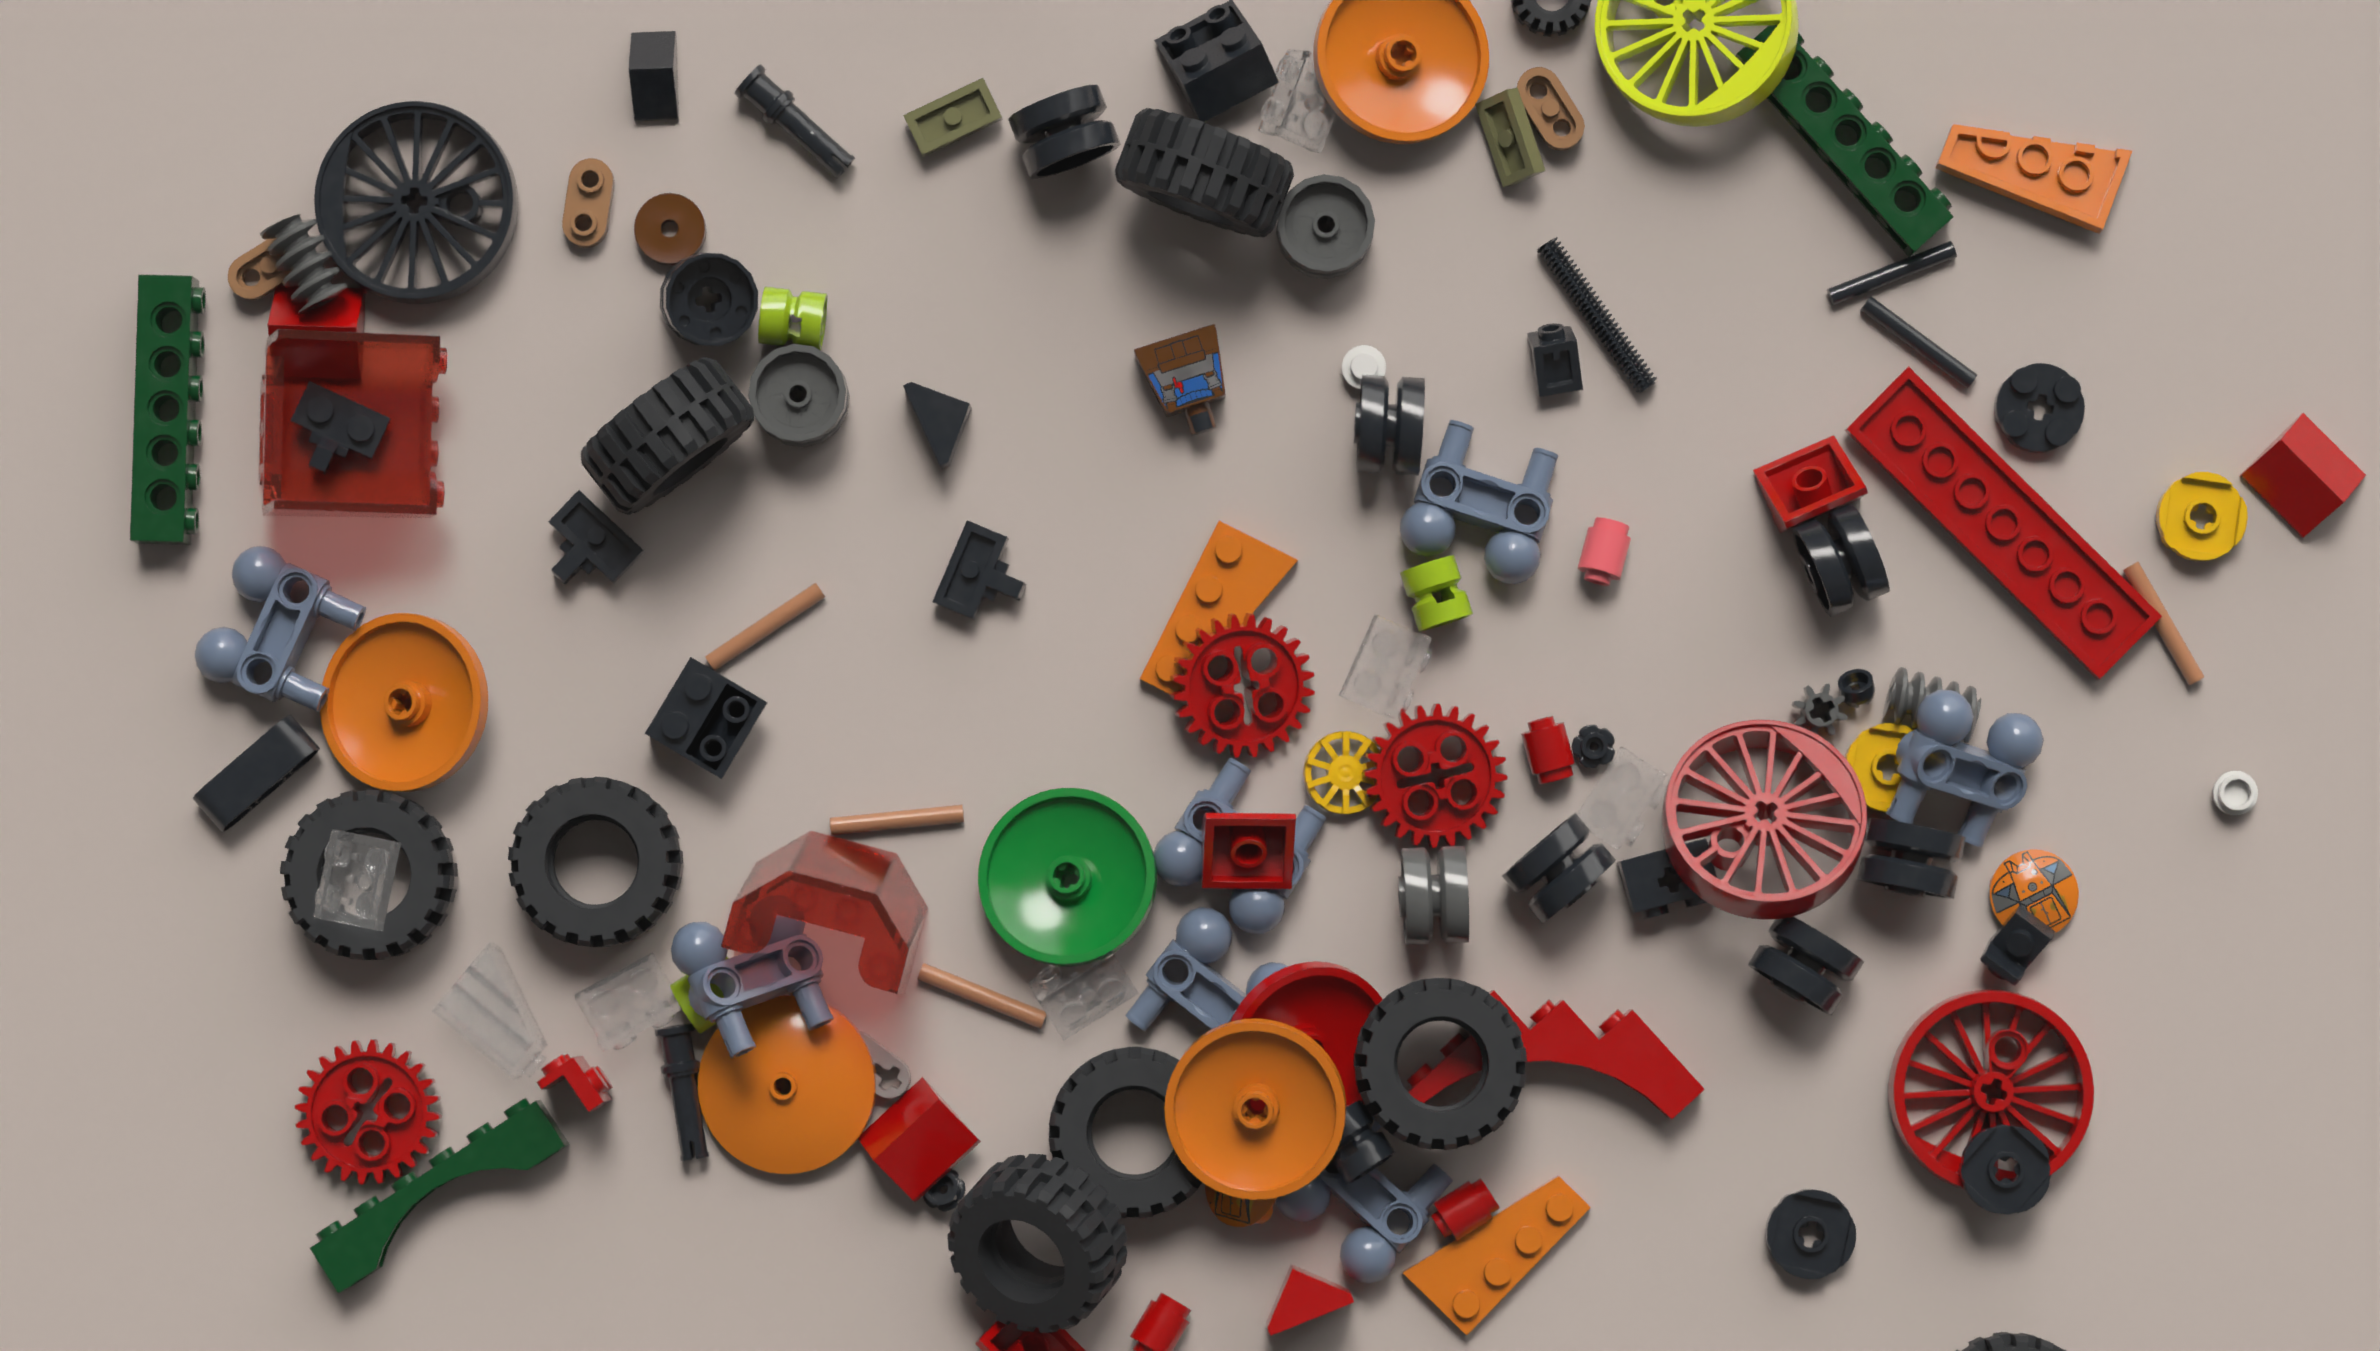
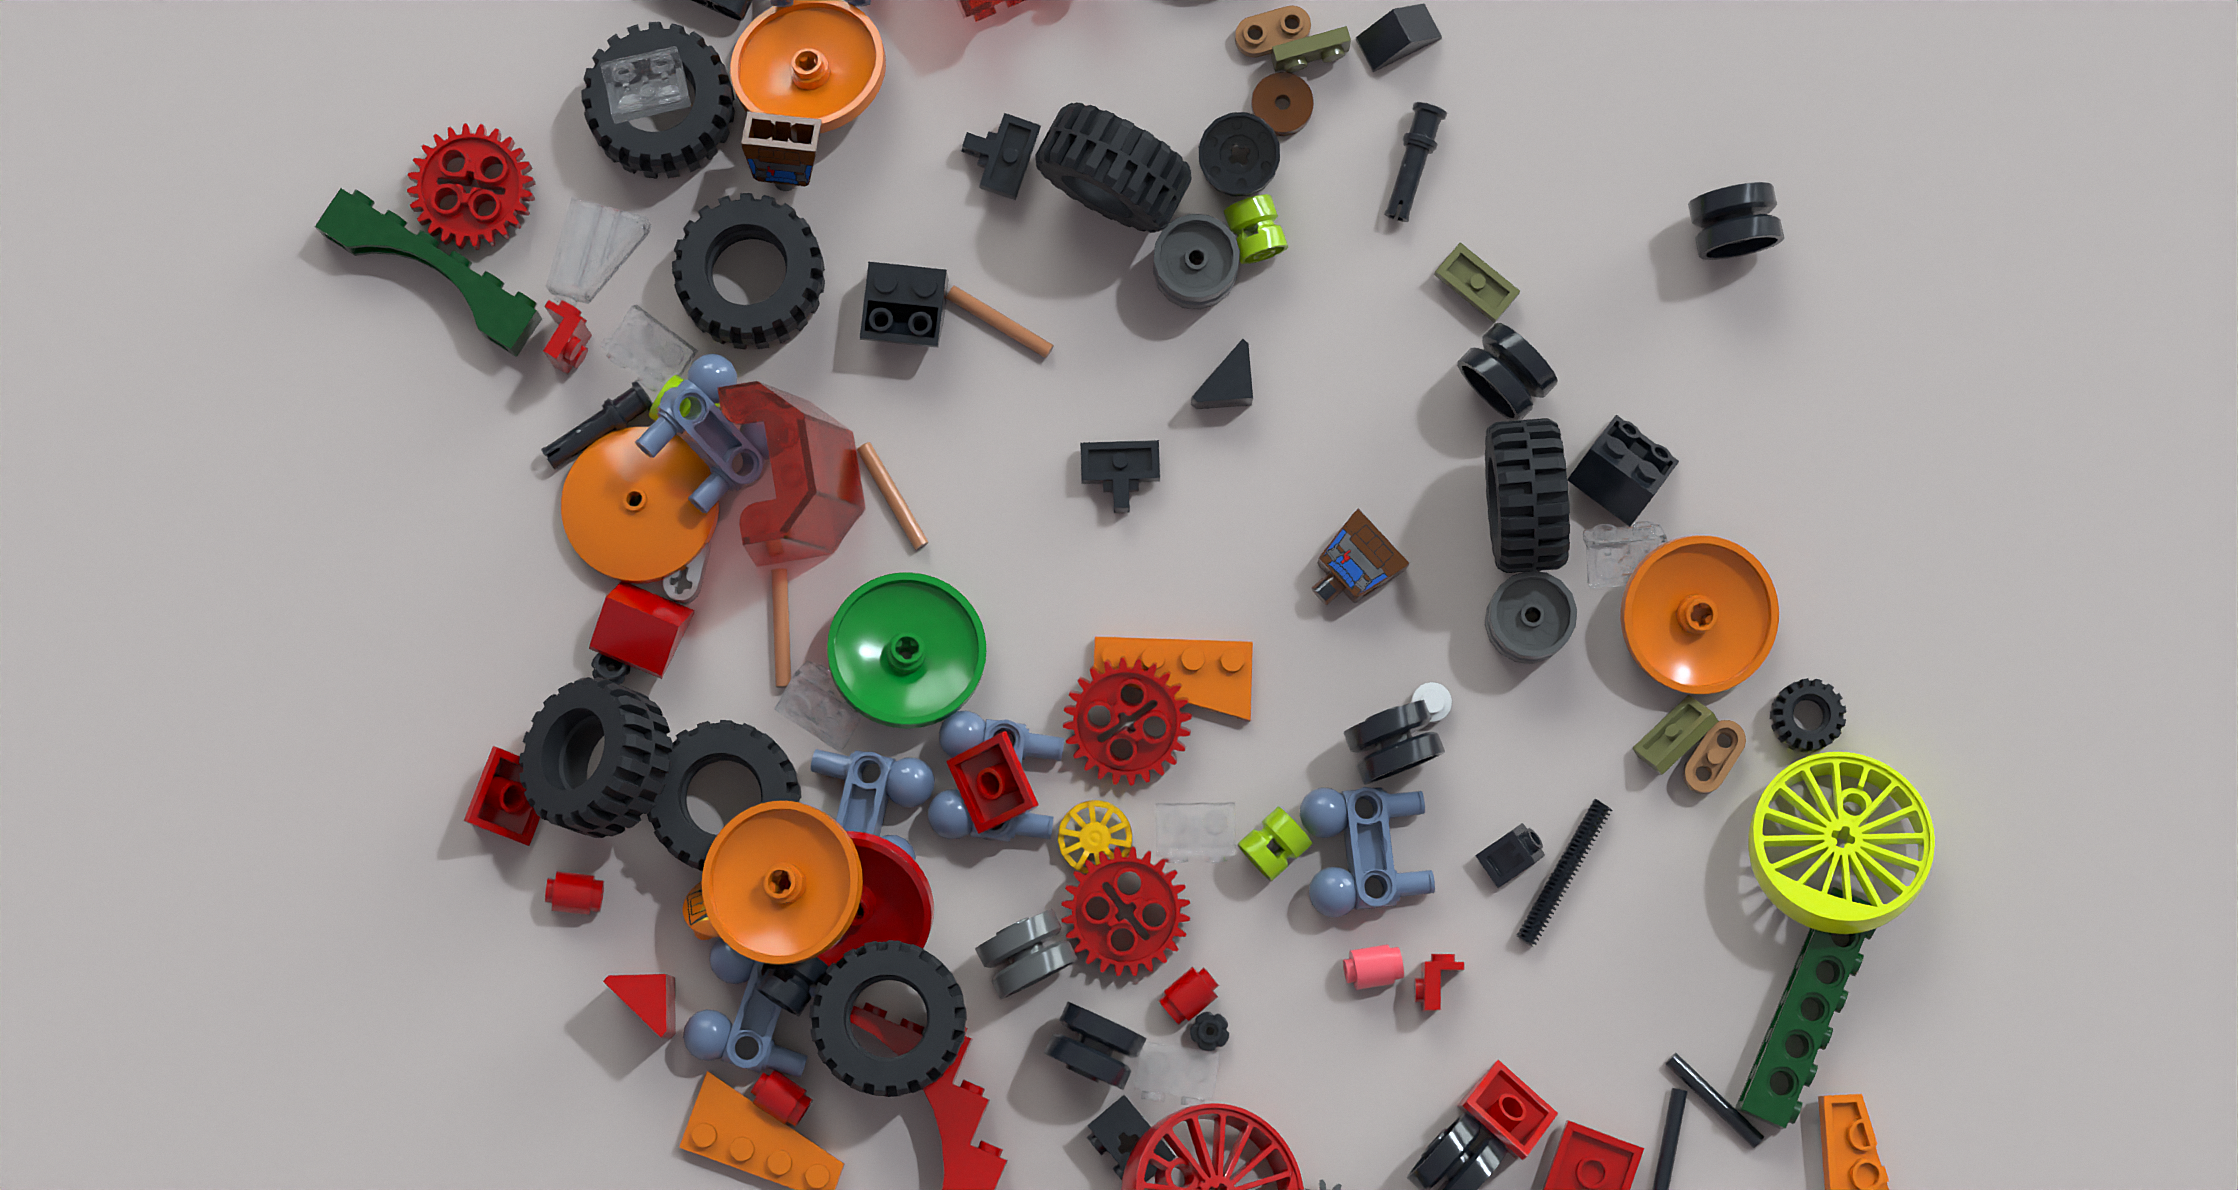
camera: 65 degrees right, 5 degrees down
(484, 769) = (780, 148): none -> reddish brown torso
(632, 154) = (1296, 54): none -> olive plate
(1650, 505) = (1428, 987): none -> red bracket

